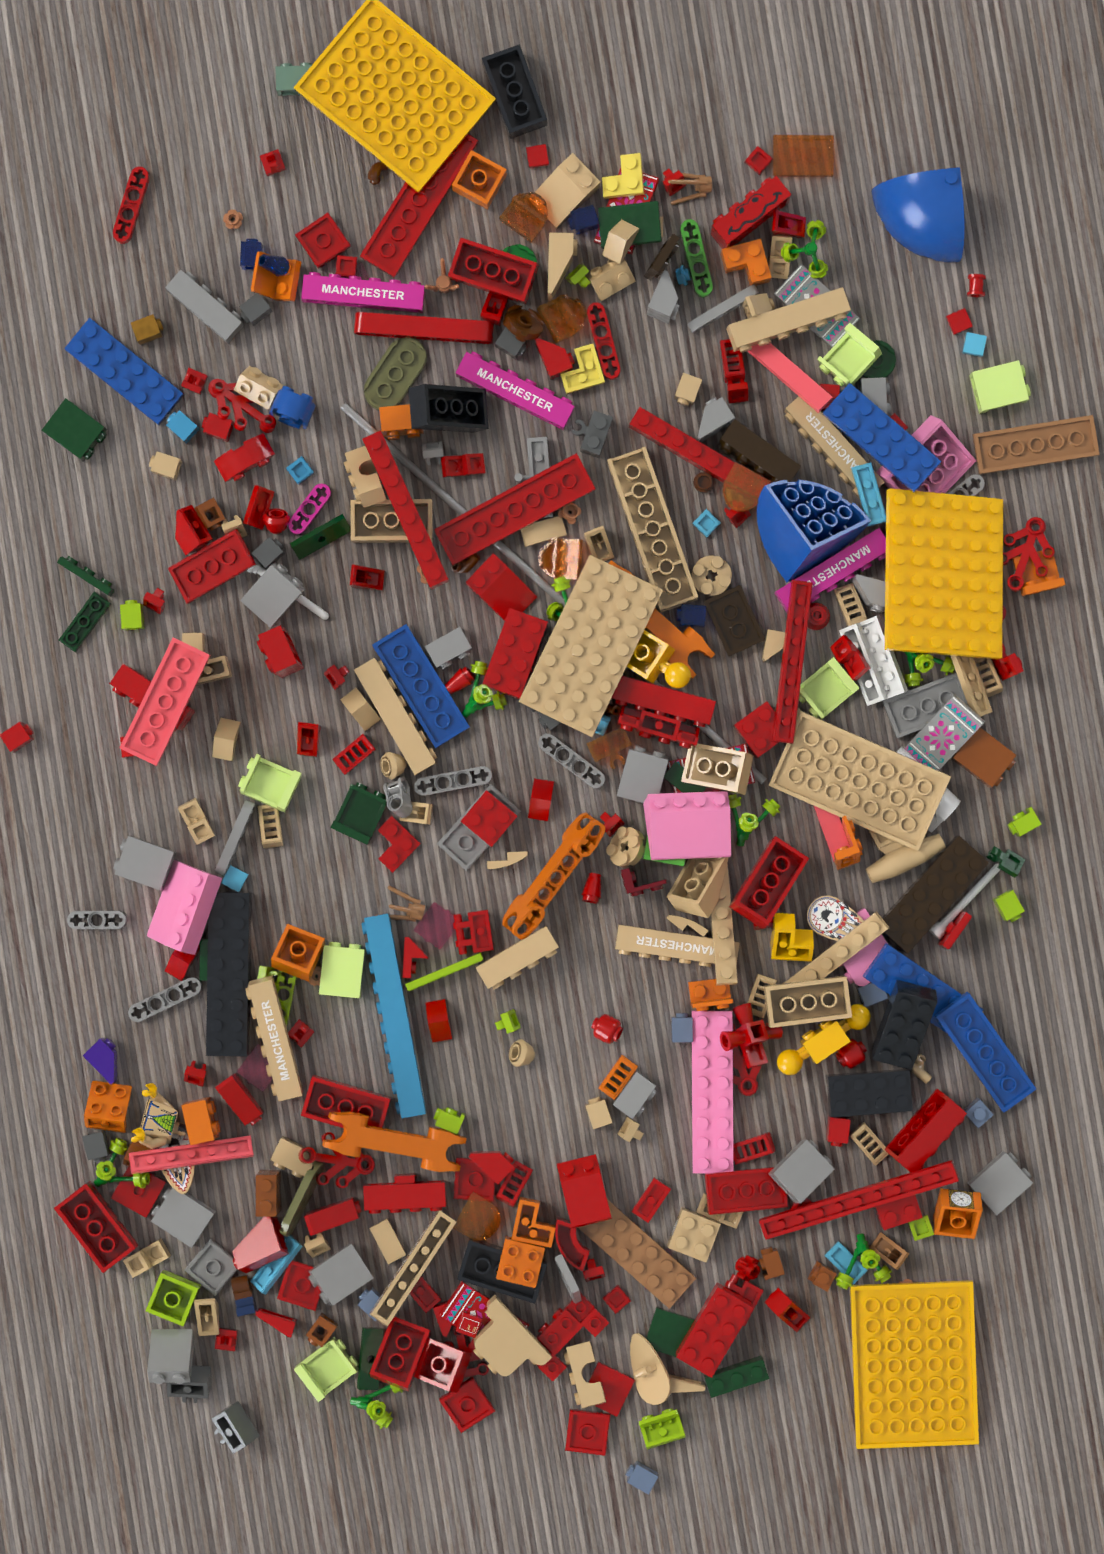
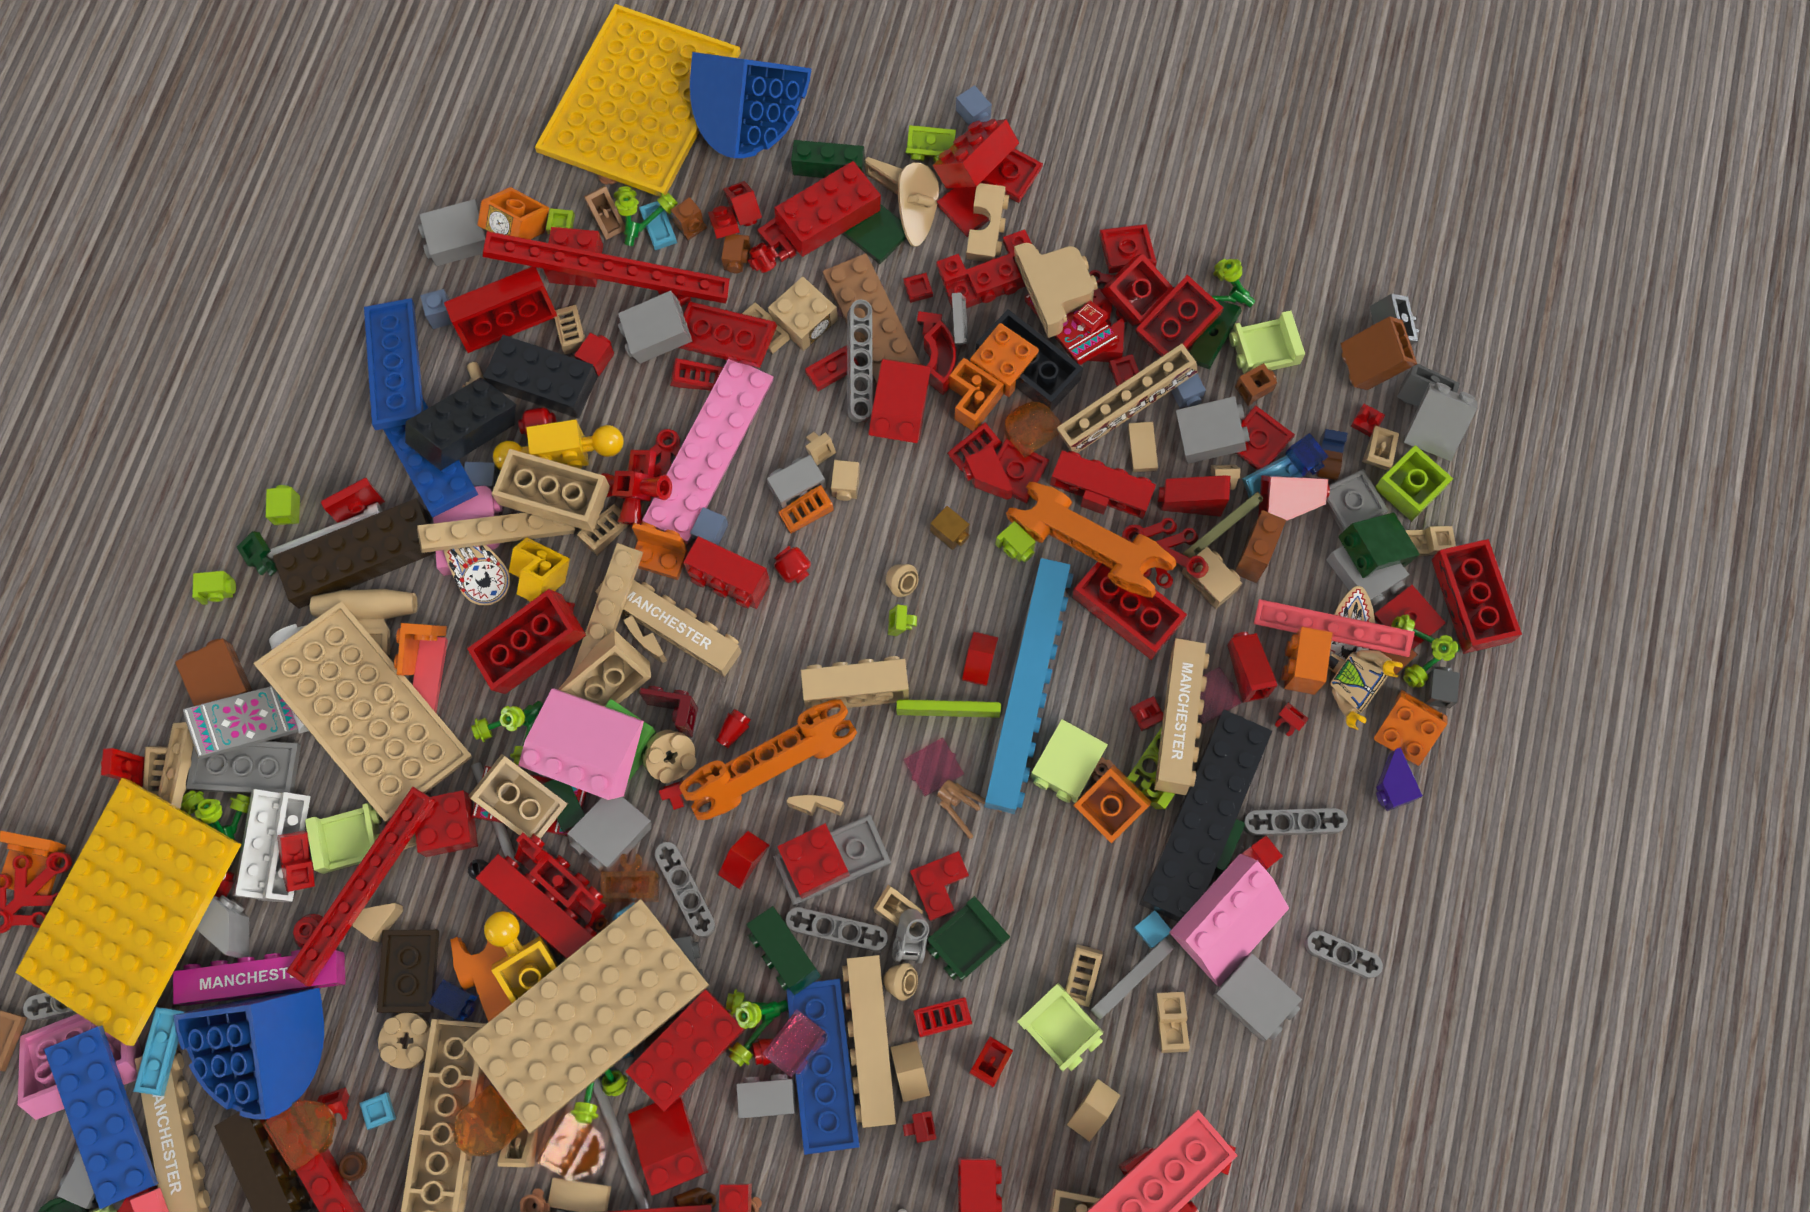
camera: 155 degrees left, 15 degrees down
(181, 1234) = (1378, 544): none -> dark green panel
(238, 1392) = (1378, 353): none -> dark orange brick
(260, 1281) = (1307, 455): none -> clear blue brick
(278, 1321) = (1302, 413): red slope -> none
(411, 951) = (977, 747): red slope -> none
(444, 690) = (794, 1043): none -> clear pink brick
(479, 930) = (886, 738): red plate -> none
(482, 748) = (782, 951): none -> dark green brick
(503, 1109) = (950, 528): none -> pearl gold brick
(618, 1429) = (975, 153): none -> red brick
(625, 547) = (485, 1124): none -> clear orange slope
(637, 1218) = (864, 350): none -> light grey beam
(650, 998) = (727, 573): none -> red brick
(719, 712) = (471, 868): none -> black hinge
(792, 1284) = (723, 221): none -> red plate
(825, 1396) = (744, 101): none -> blue brick
(857, 602) = (254, 925): tan slope -> none

